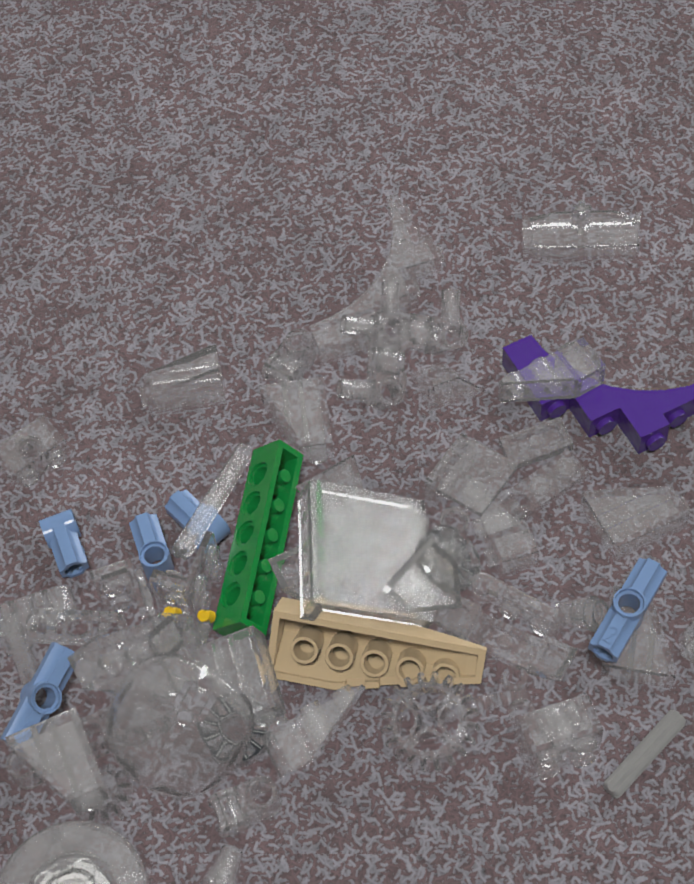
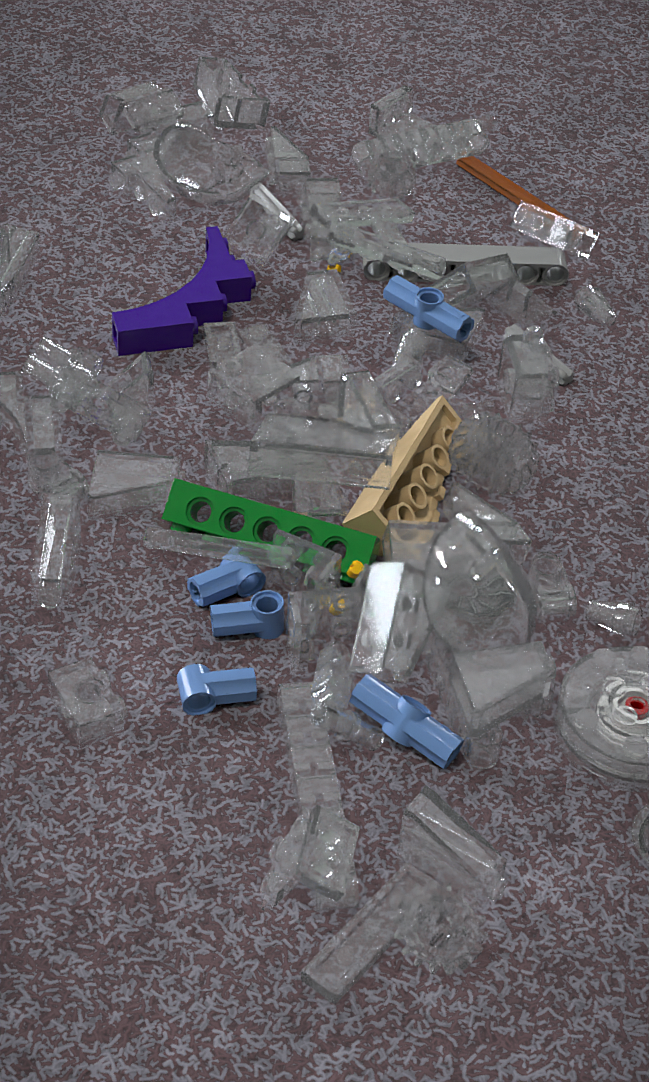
camera: 90 degrees left, 15 degrees down
(561, 375) = (173, 290): clear slope -> none

